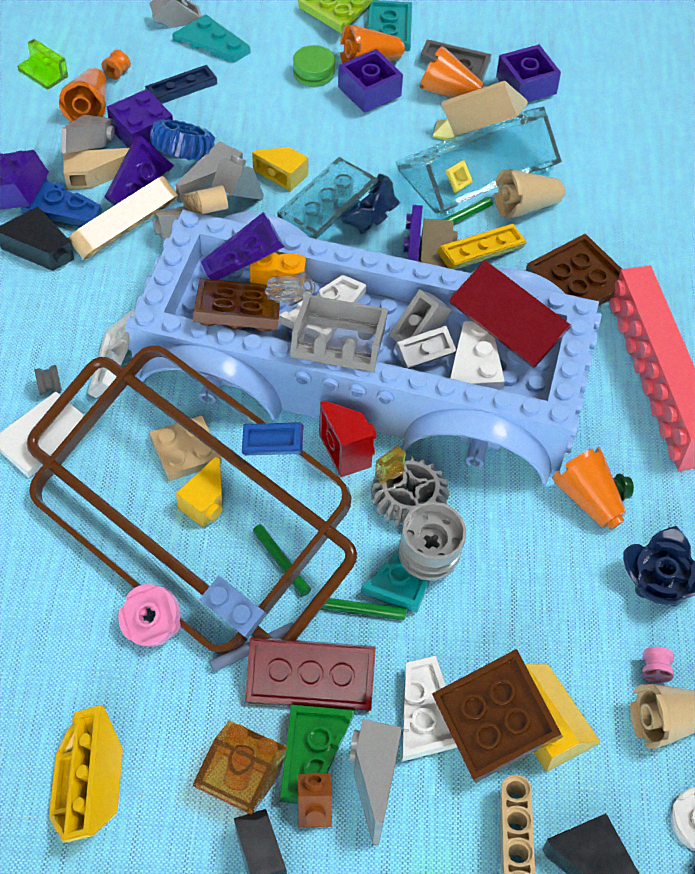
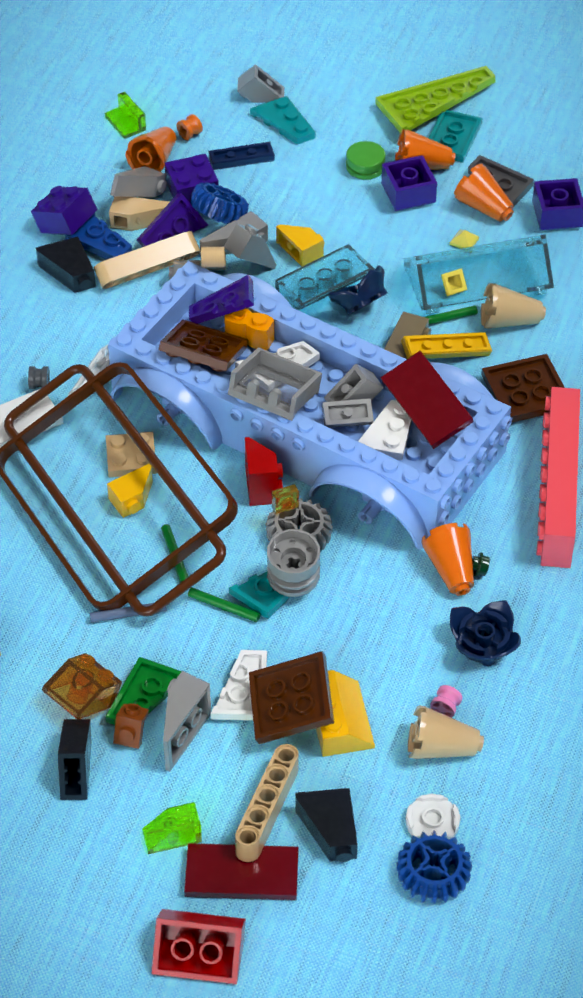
camera: 20 degrees right, 5 degrees down
(165, 623) = (65, 574): bright pink plate -> none
(233, 607) = (118, 574): medium blue plate -> none
(272, 438) = (188, 452): blue tile -> none
(290, 289) = (249, 341): clear piece -> none
(310, 673) = (162, 638): tile -> none
(413, 222) = (391, 314): dark purple wing -> none
(483, 107) = (496, 225): tan slope -> none

